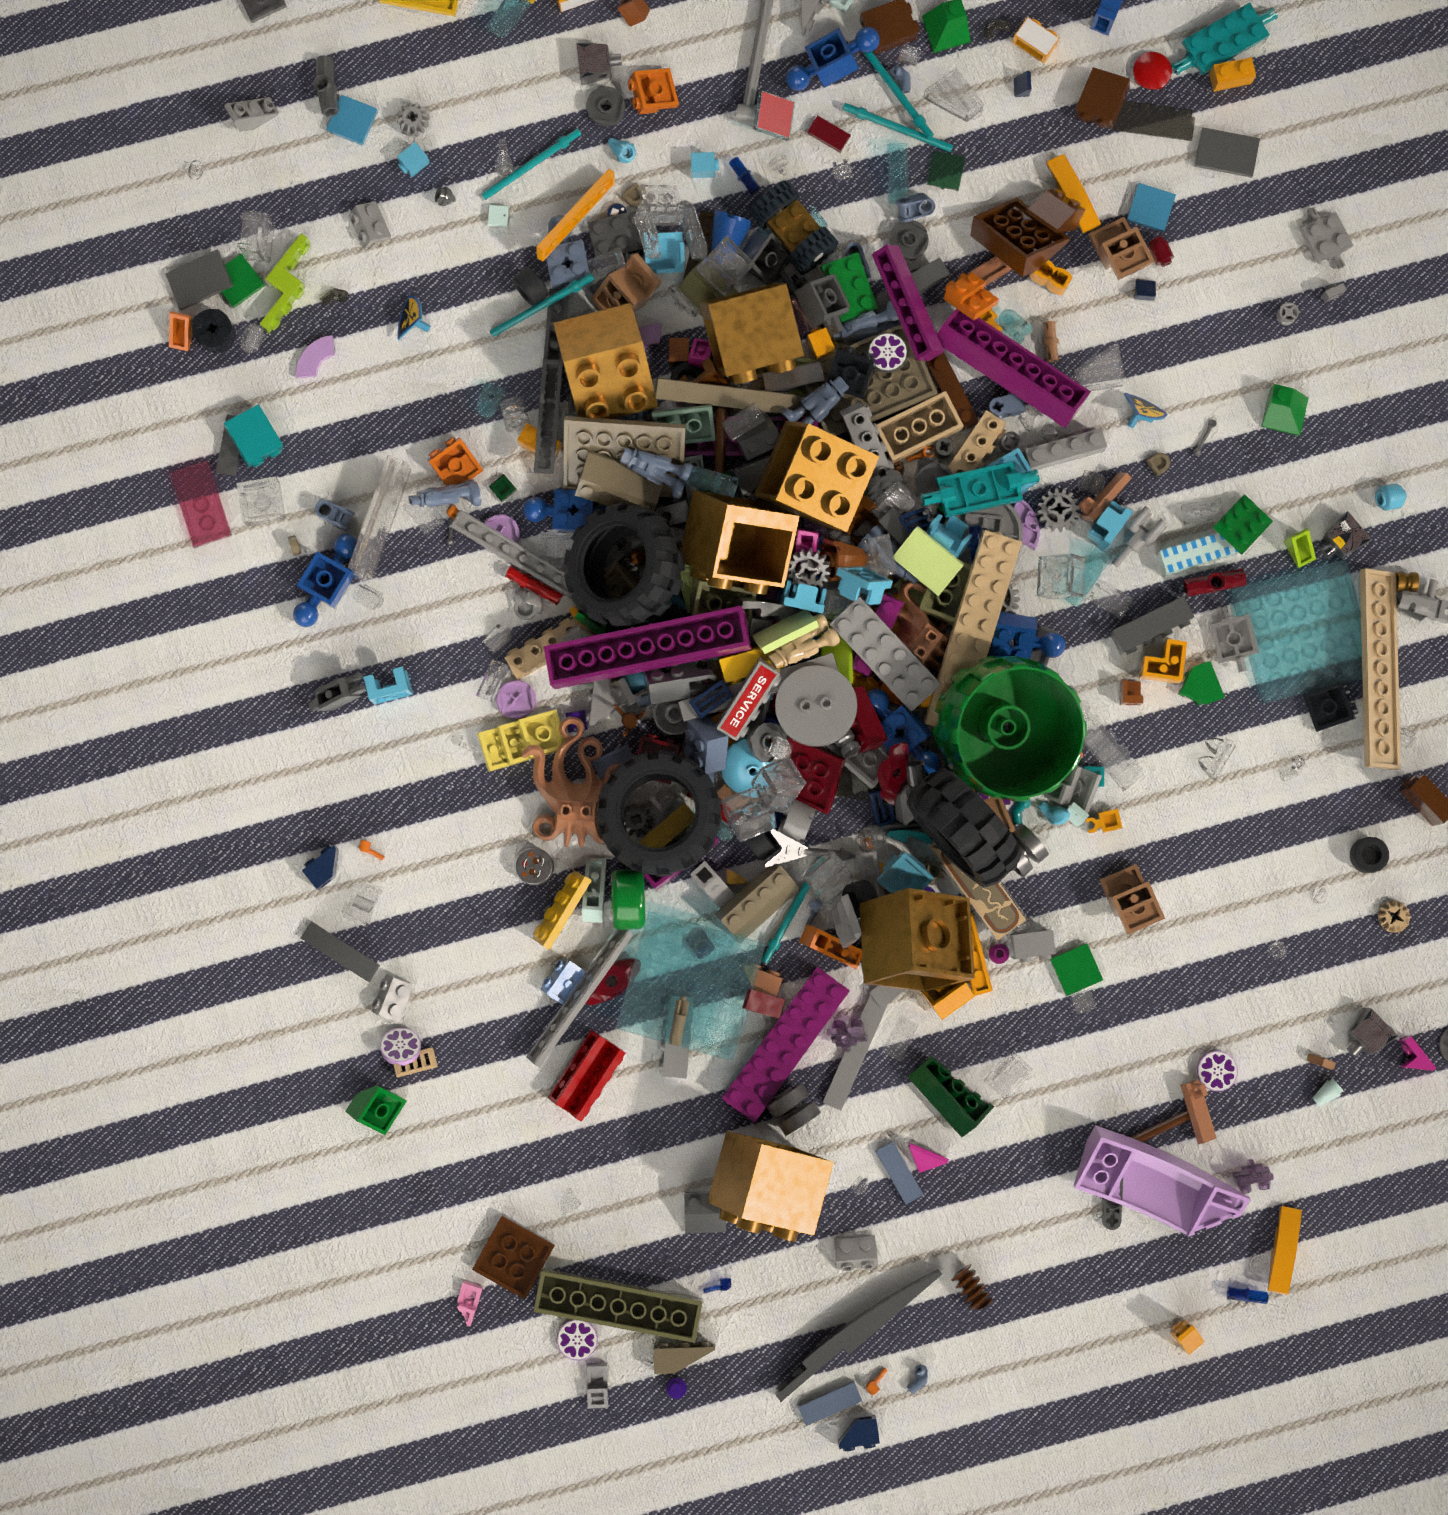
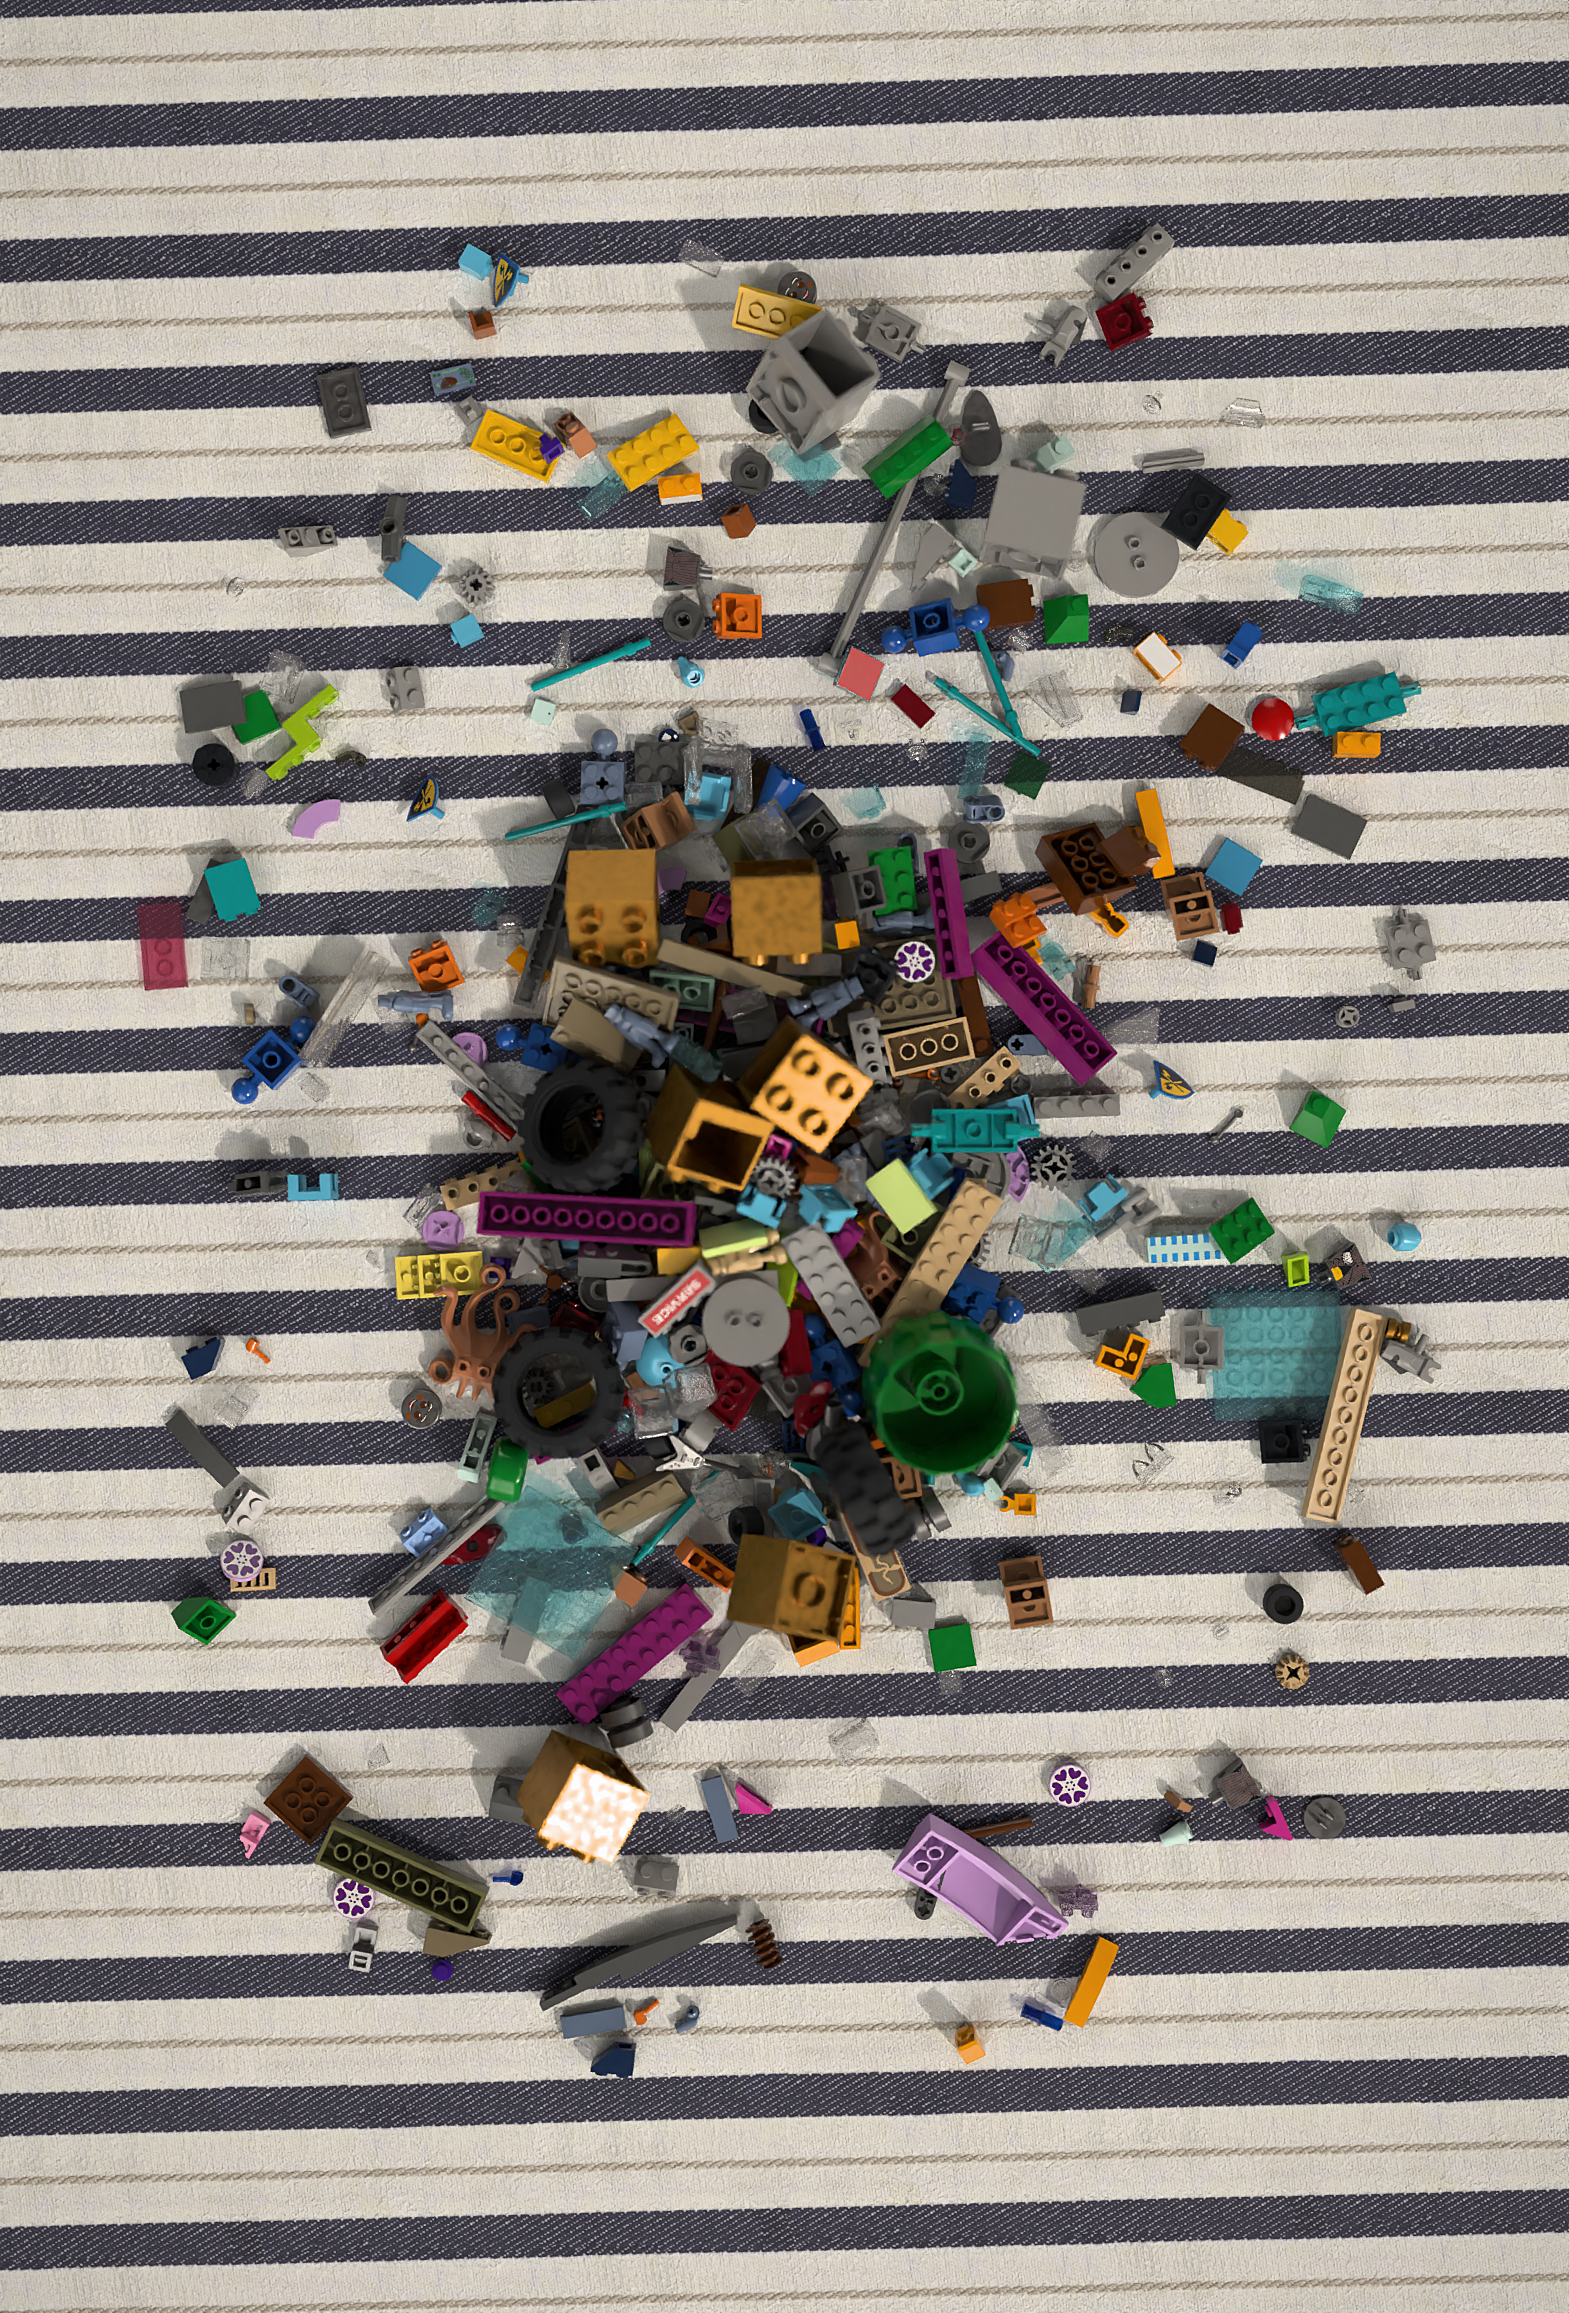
camera: 10 degrees right, 5 degrees up
(180, 331) = (180, 758): orange slope -> none
(444, 196) = (490, 678): dark grey plate -> none
(497, 637) = (438, 1162): clear brick -> none
(502, 488) = (480, 1004): dark green tile -> none
(561, 910) = (438, 1461): yellow plate -> none
(575, 215) = (622, 734): light orange tile -> none
(680, 1016) = (527, 1612): dark tan piece -> none
(704, 165) = (772, 709): medium azure brick -> none
(725, 689) = (658, 1280): dark blue tile -> none
(763, 1003) = (620, 1609): dark red tile -> none
(780, 748) = (699, 1354): clear tile -> none
(794, 227) = (849, 802): black plate -> none
(816, 905) = (701, 1519): sand blue hand -> none
(846, 922) = (724, 1553): light grey slope -> none
(950, 1096) = (790, 1746): dark green wedge -> none
(992, 953) = (869, 1613): magenta plate -> none
(1093, 508) = (1090, 1175): nougat hinge -> none
(1130, 693) = (1080, 1376): dark orange panel -> none
(1158, 463) = (1171, 1142): dark tan tile -> none
(1198, 1110) = (1039, 1821): nougat hinge -> none
(1226, 581) = (1210, 1283): dark red piece -> none

